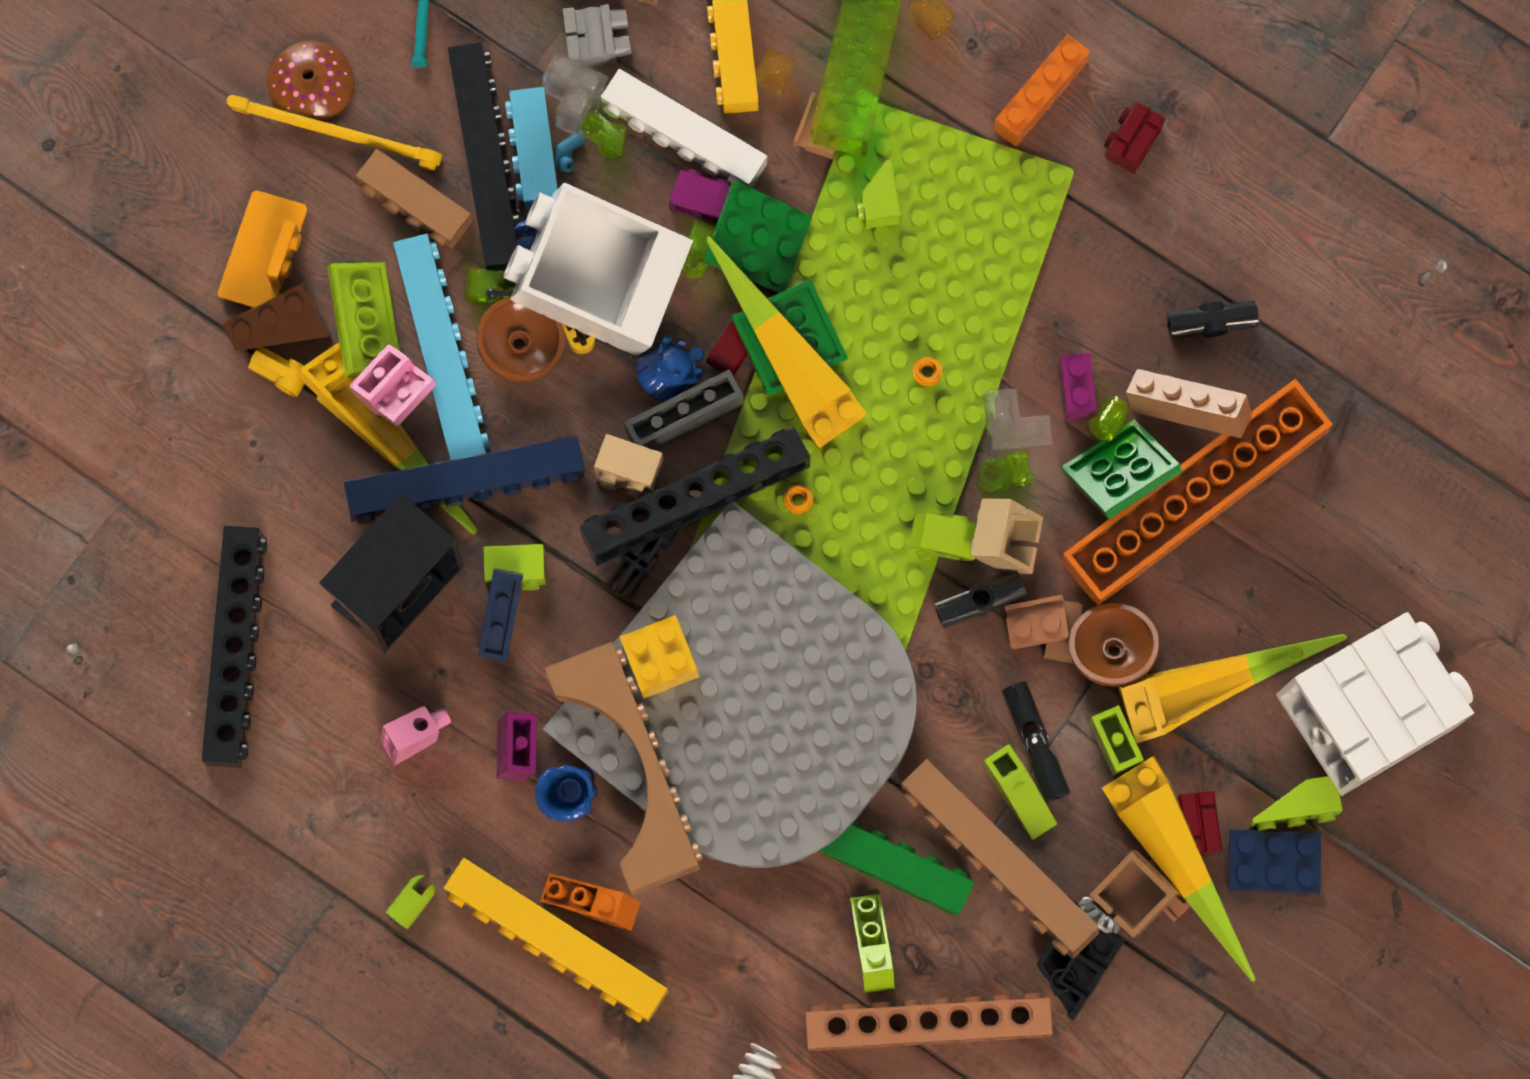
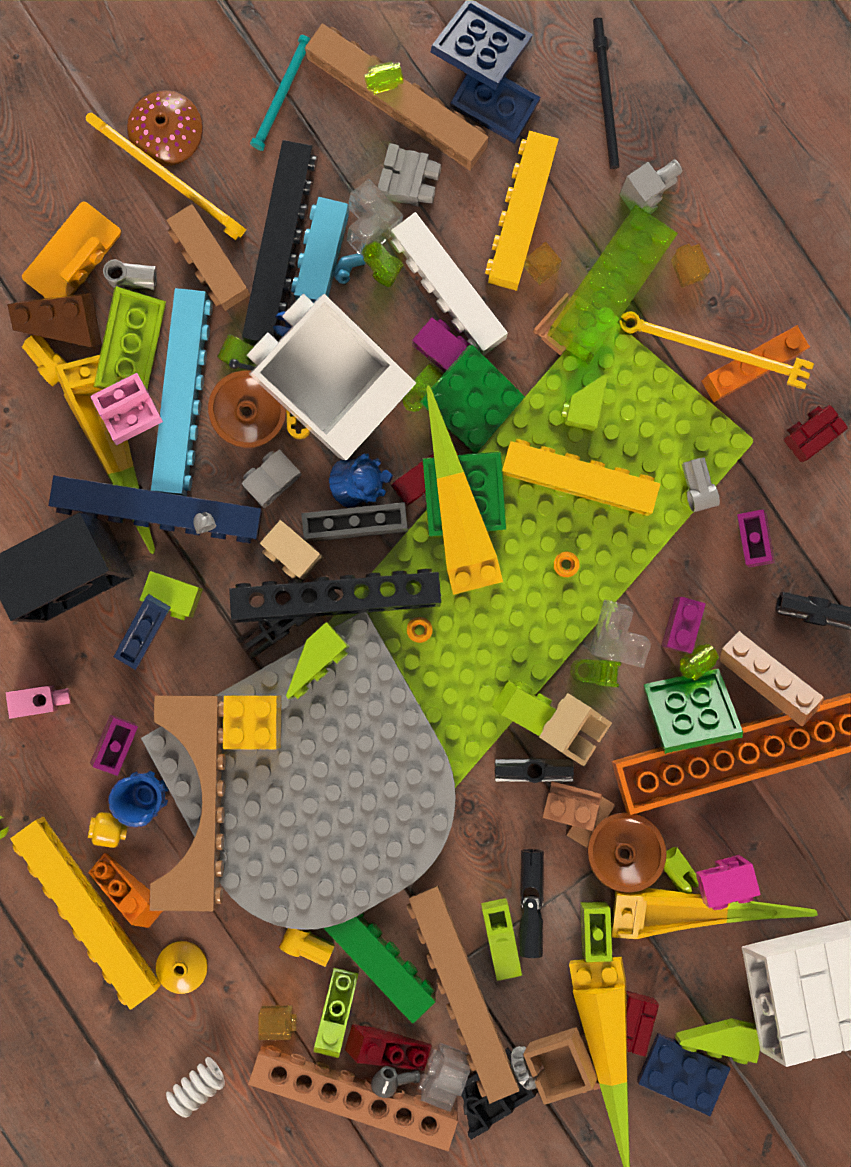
camera: 25 degrees right, 10 degrees up
(340, 248) = (133, 275): none -> light grey piece
(524, 470) = (204, 522): none -> light grey hinge
(544, 842) = (106, 830): none -> yellow head
(574, 403) = (271, 478): none -> light grey brick
(688, 979) = (185, 955): none -> yellow dish
(702, 557) = (317, 655): none -> lime slope
(802, 881) = (303, 943): none -> yellow piece
(812, 976) = (276, 1023): none -> clear yellow brick
(905, 276) = (580, 478): none -> yellow brick
(943, 957) = (386, 1048): none -> dark red slope
(957, 988) = (387, 1087): none -> dark grey bar
(1017, 960) = (445, 1076): none -> clear brick
(1038, 241) = (701, 491): none -> light grey piece
(1080, 82) = (791, 371): none -> yellow hinge
(1116, 268) = (756, 538): none -> magenta brick
(1180, 646) = (677, 868): none -> lime piece
(1232, 631) = (728, 882): none -> dark pink brick

